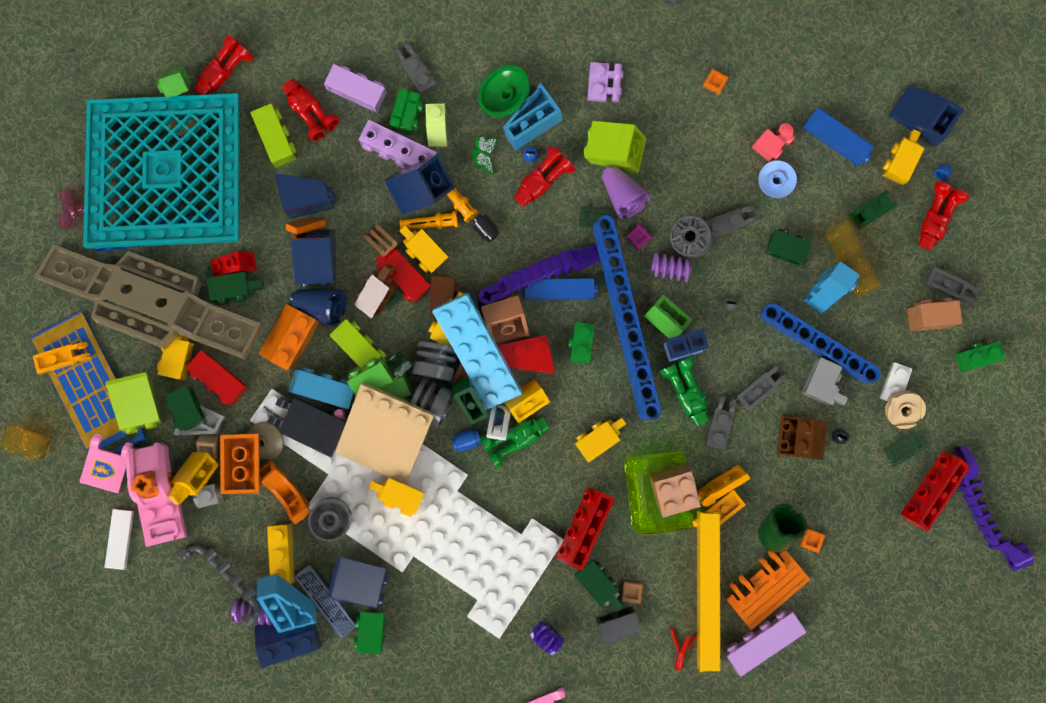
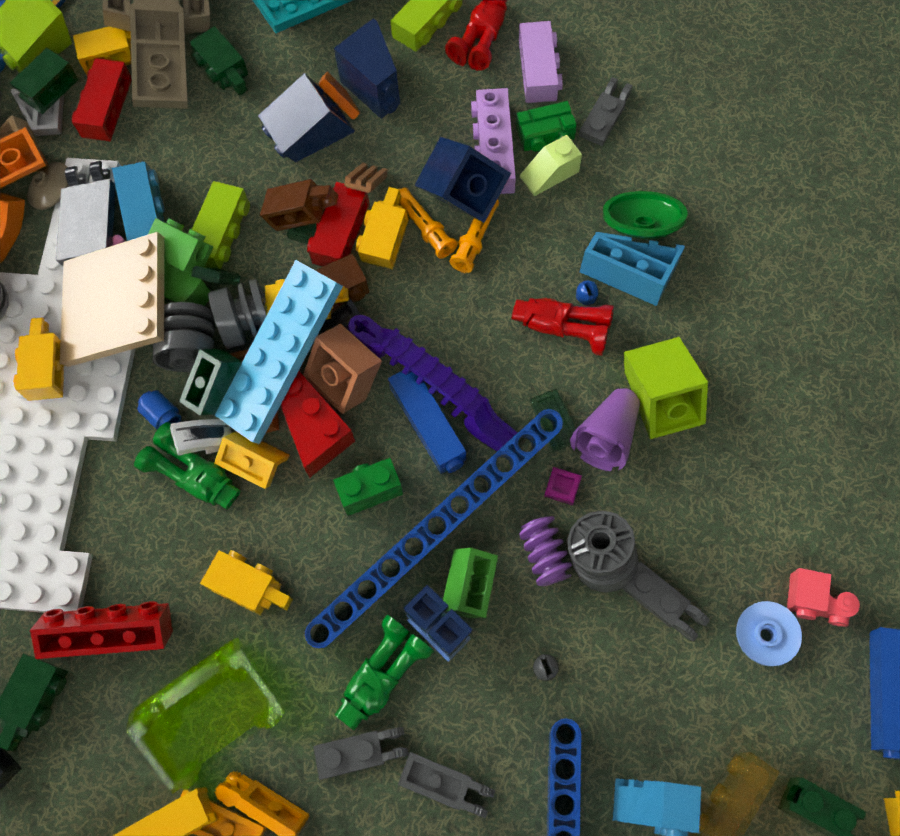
camera: 65 degrees right, 15 degrees down
(234, 262) = (253, 50): red bracket -> none
(288, 338) = (189, 150): orange slope -> none
(321, 304) = (249, 159): dark blue cone -> none
(482, 152) = (551, 233): green animal -> none
(485, 228) = (455, 288): black brick -> none
(598, 82) = (739, 322): lavender plate -> none
(632, 592) = (40, 756): medium nougat tile -> none
(674, 490) = (215, 730): nougat brick -> none
(715, 81) = (846, 472): orange tile -> none
(788, 247) = (679, 706): dark green brick -> none

